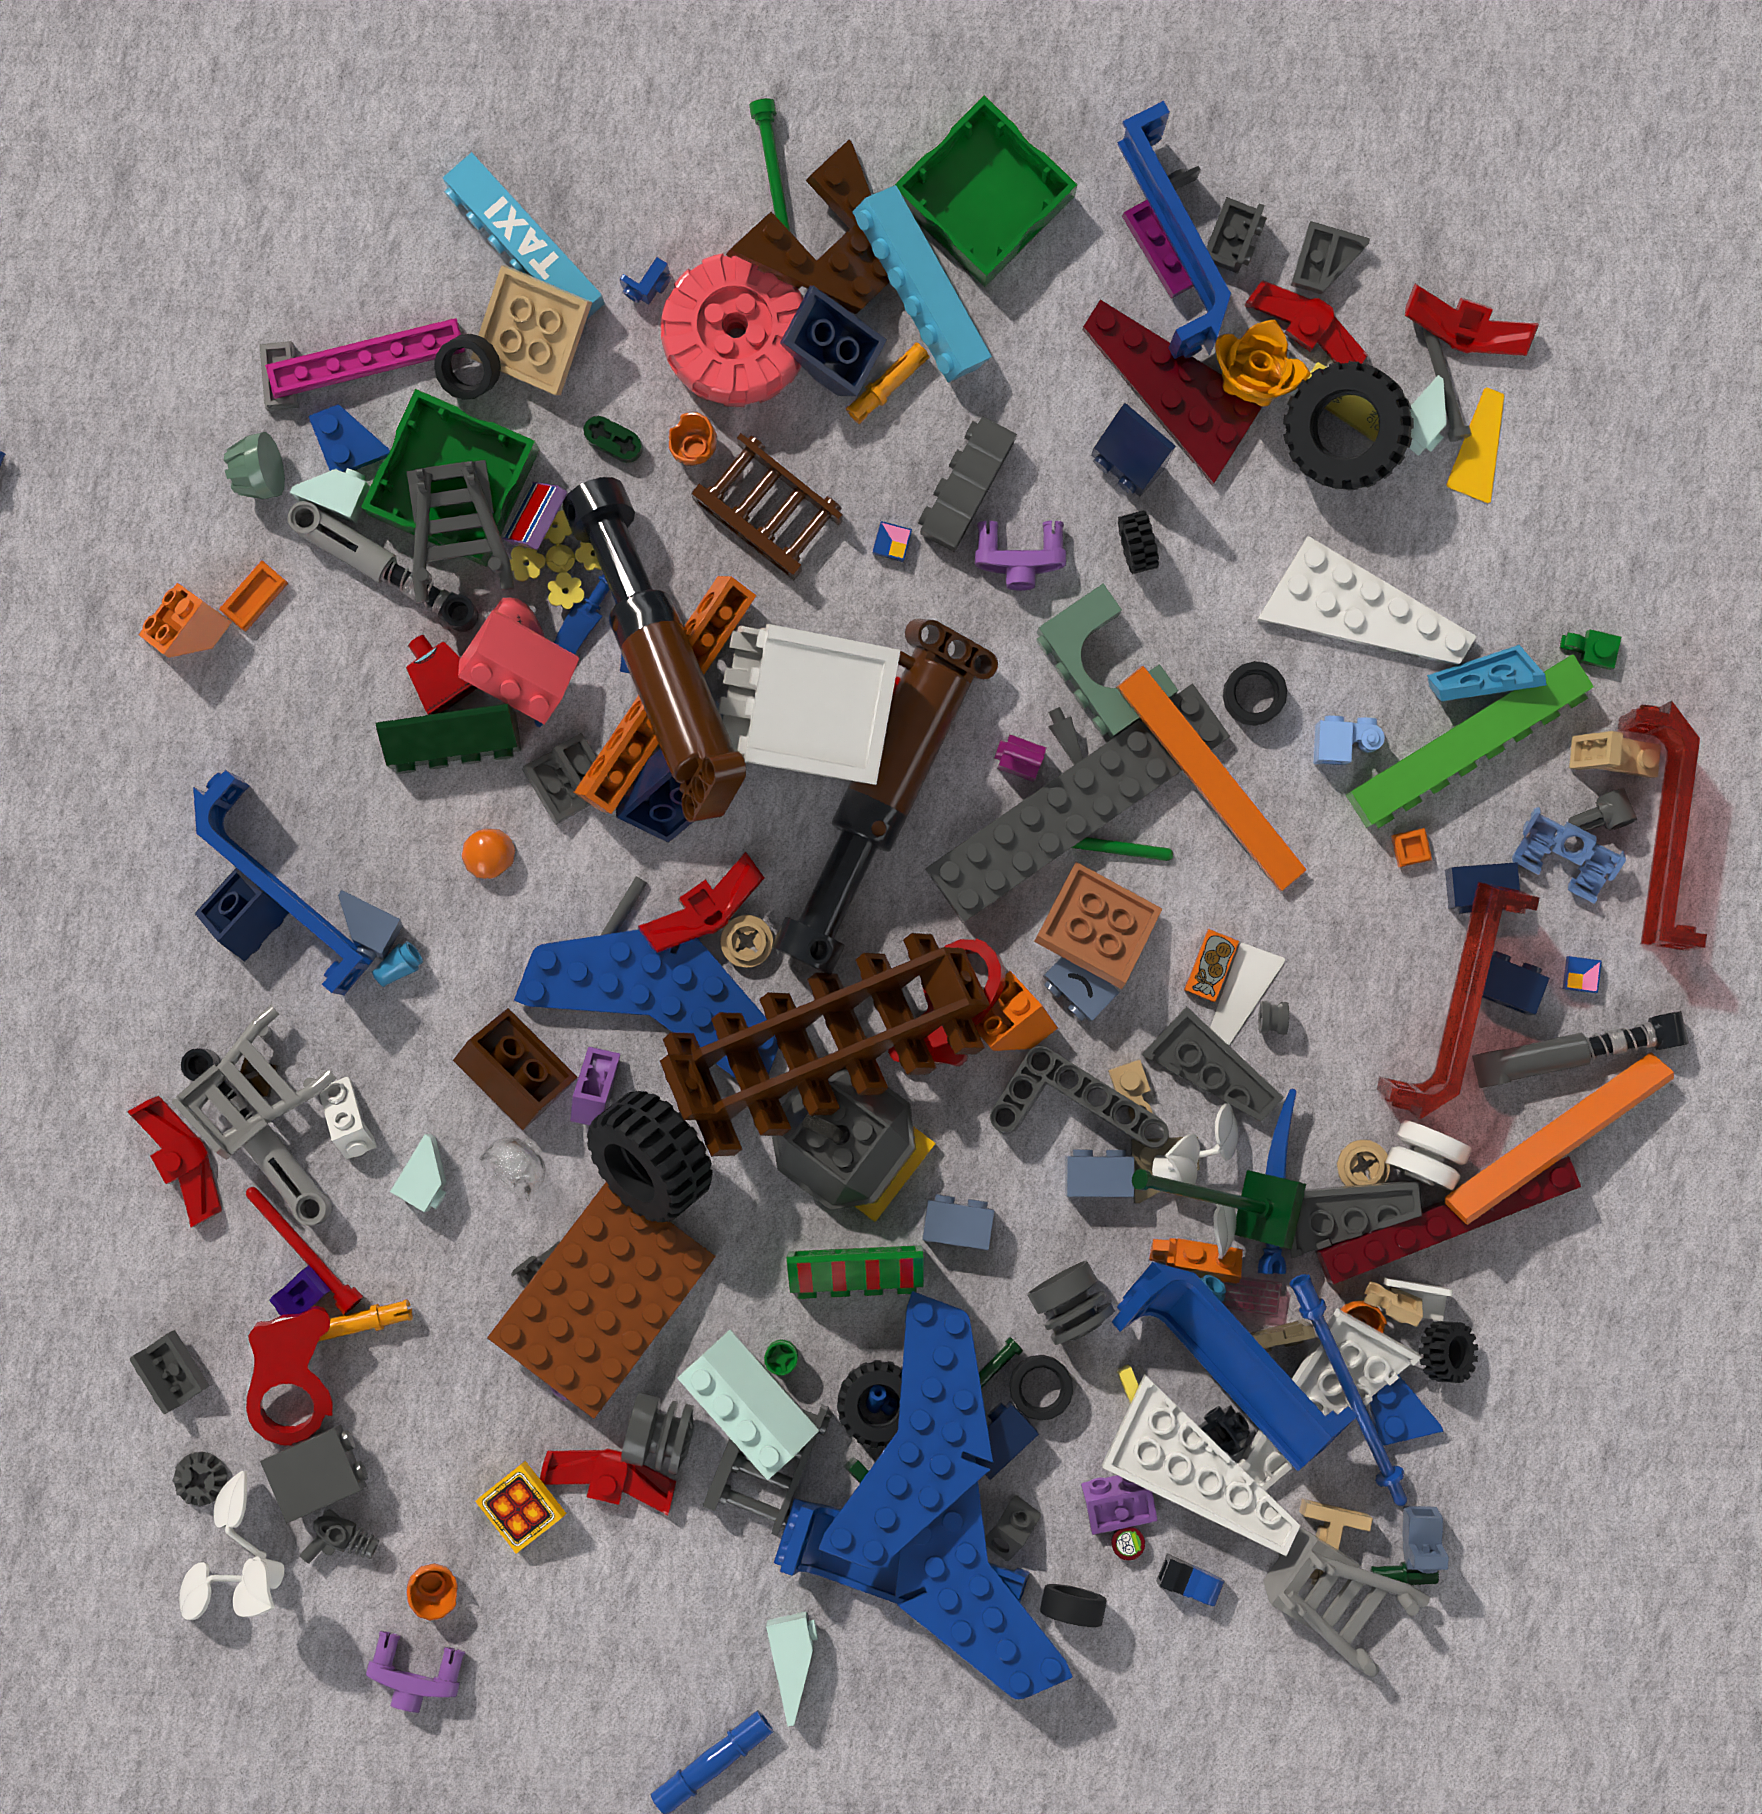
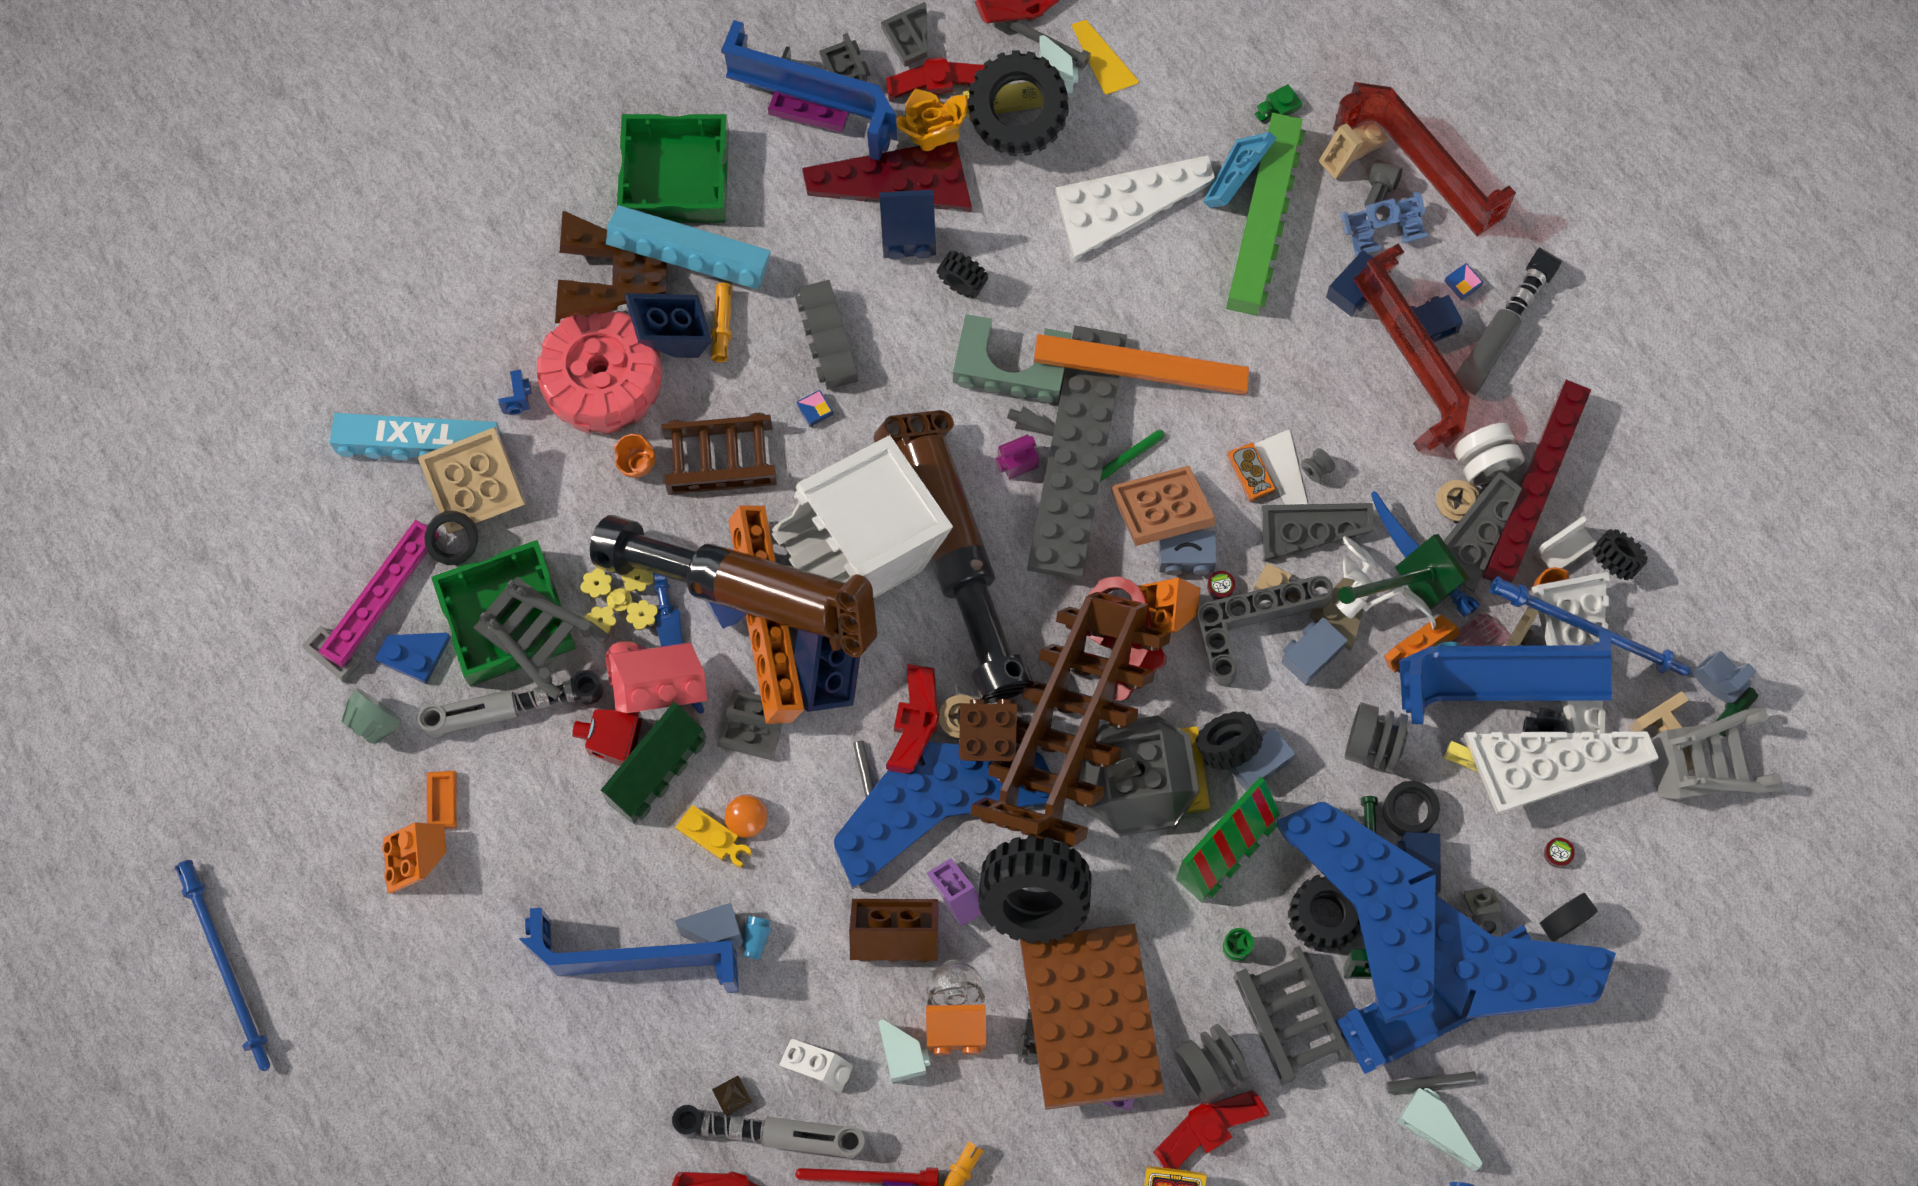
camera: 40 degrees left, 15 degrees down
(206, 1087) = (707, 1126): light grey hand -> none
(240, 915) = (623, 999): dark blue slope -> none
(335, 493) = (436, 686): light aqua slope -> none
(443, 842) = (711, 835): none -> yellow plate
(482, 1201) = (956, 1028): none -> orange slope
(535, 515) = (579, 583): tile -> none
(616, 432) = (583, 502): dark green beam -> none
(748, 1404) = (1249, 987): light aqua slope -> none
(749, 981) = (988, 730): none -> reddish brown bracket
(763, 113) = (495, 241): green piece -> none
(826, 1619) = (1431, 1082): none -> dark grey bar
(880, 1400) = (1325, 912): blue arm -> none
(941, 1204) = (1234, 752): none -> black tyre
(1020, 565) = (905, 351): medium lavender connector -> none
(1081, 1040) = (1221, 585): none -> tile
(1117, 1504) = (1529, 832): medium lavender bracket -> none
(1189, 1580) = (1618, 837): leg -> none
(1268, 672) = (1116, 279): black tyre -> none
(1335, 739) = (1191, 279): light blue brick -> none
(1398, 1304) = (1565, 554): tan plate -> none
(1401, 1414) = (1633, 618): blue wing -> none
(1411, 847) = (1294, 301): orange tile -> none
(1558, 1138) = (1549, 376): orange tile -> none

